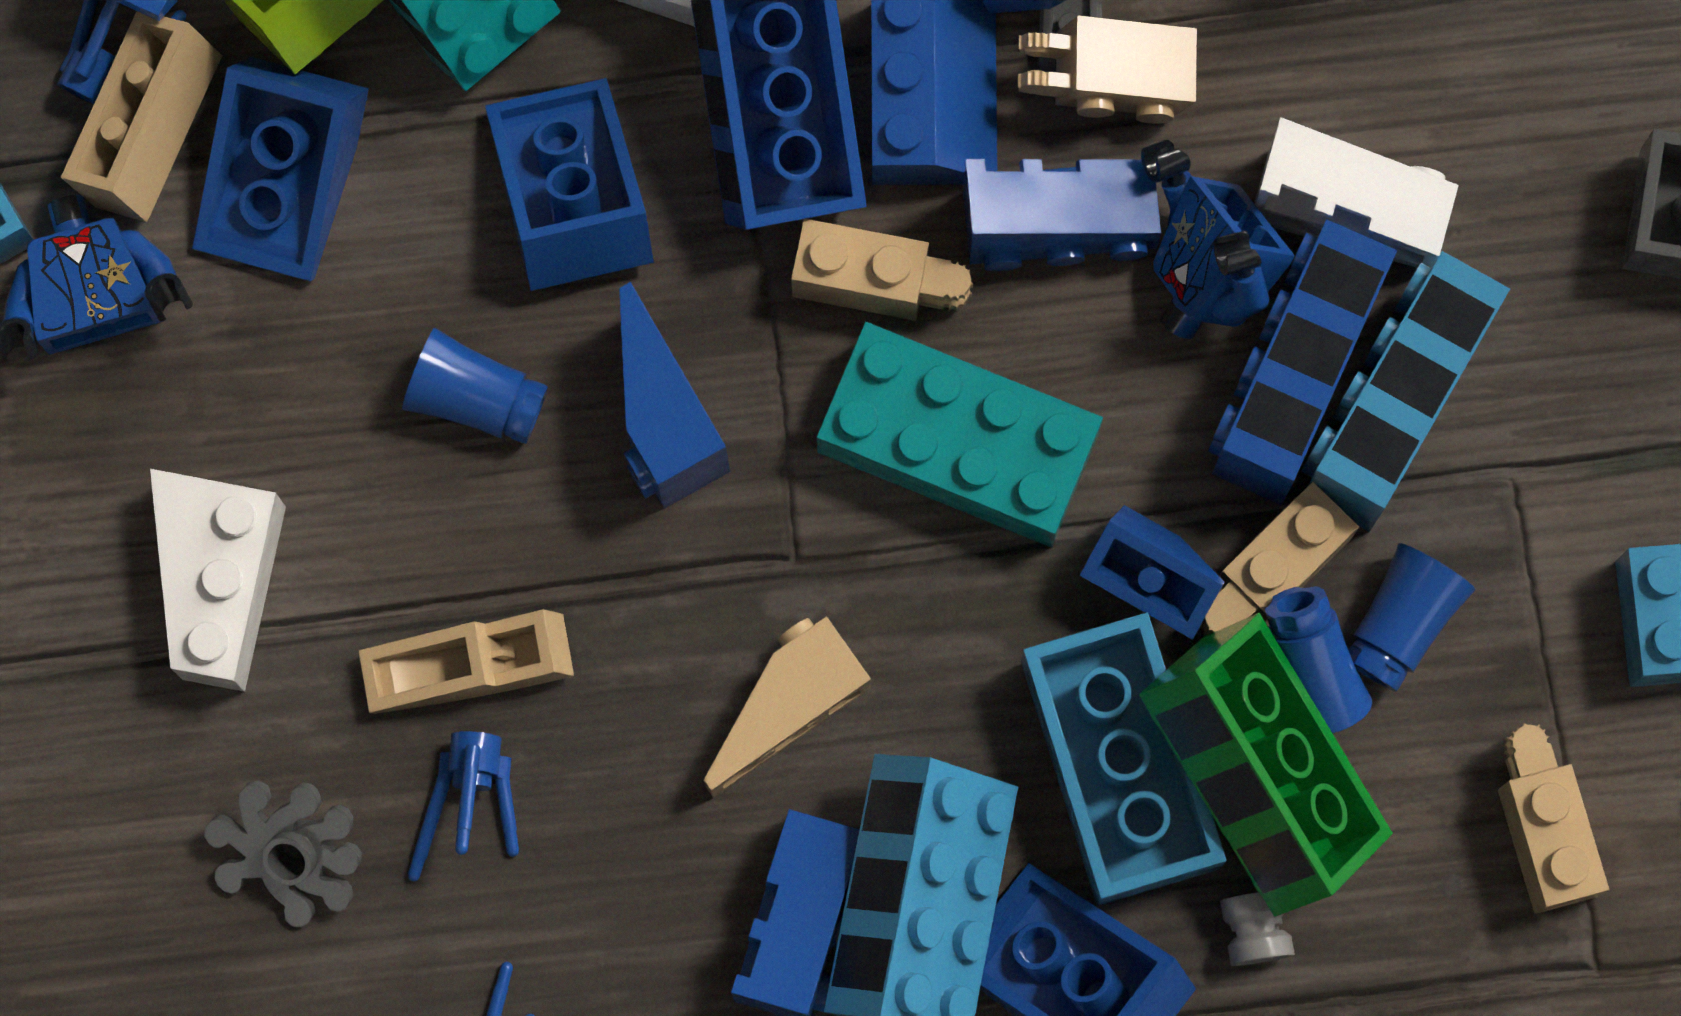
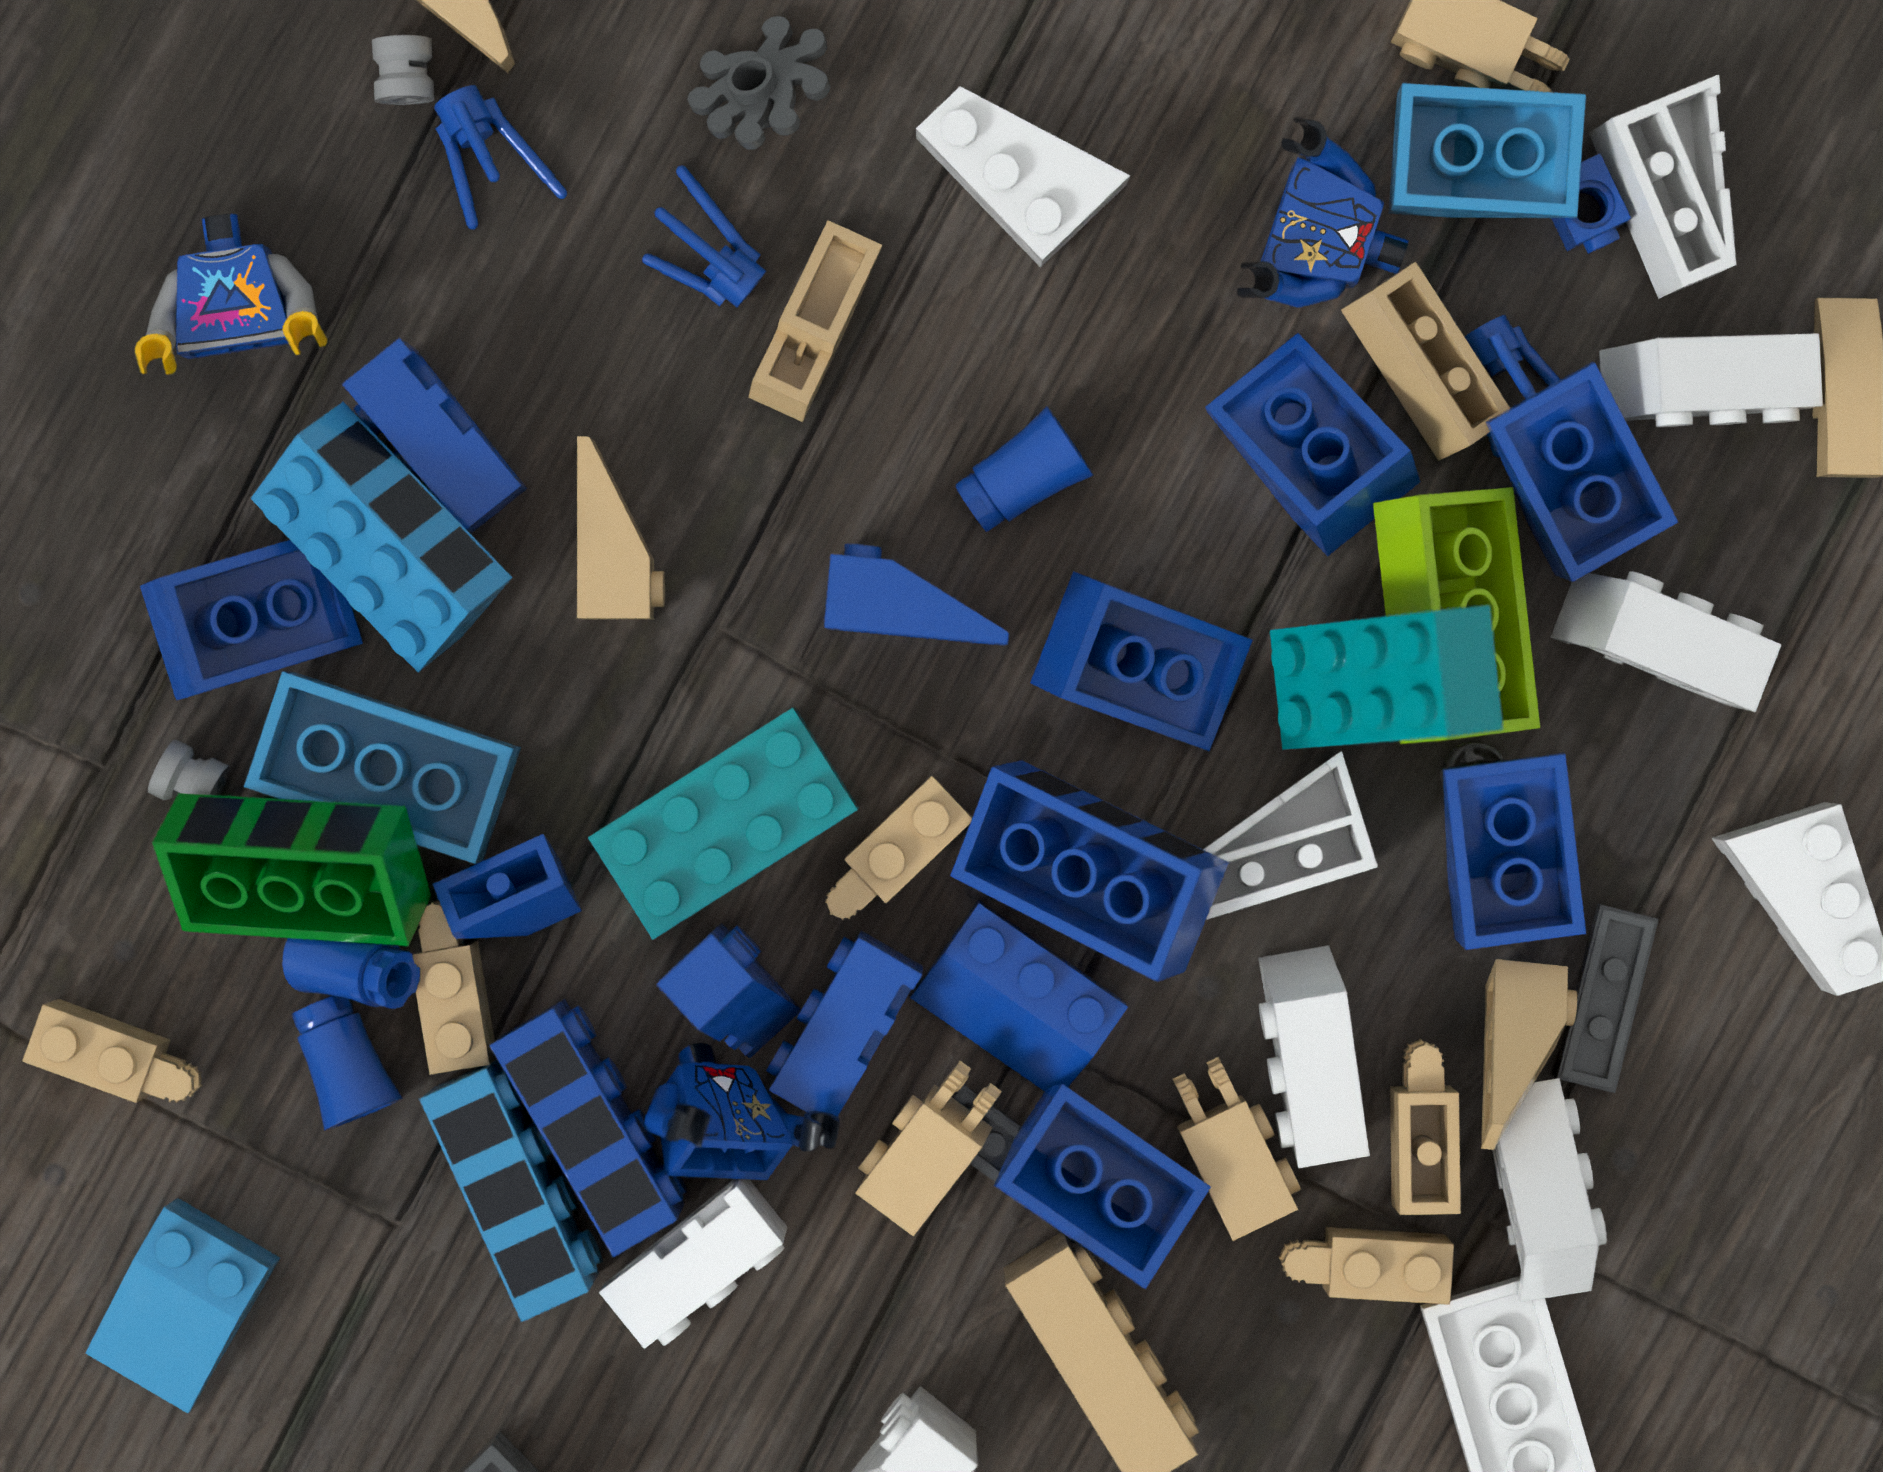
camera: 125 degrees right, 10 degrees up
(1095, 334) = (729, 991): none -> blue wedge

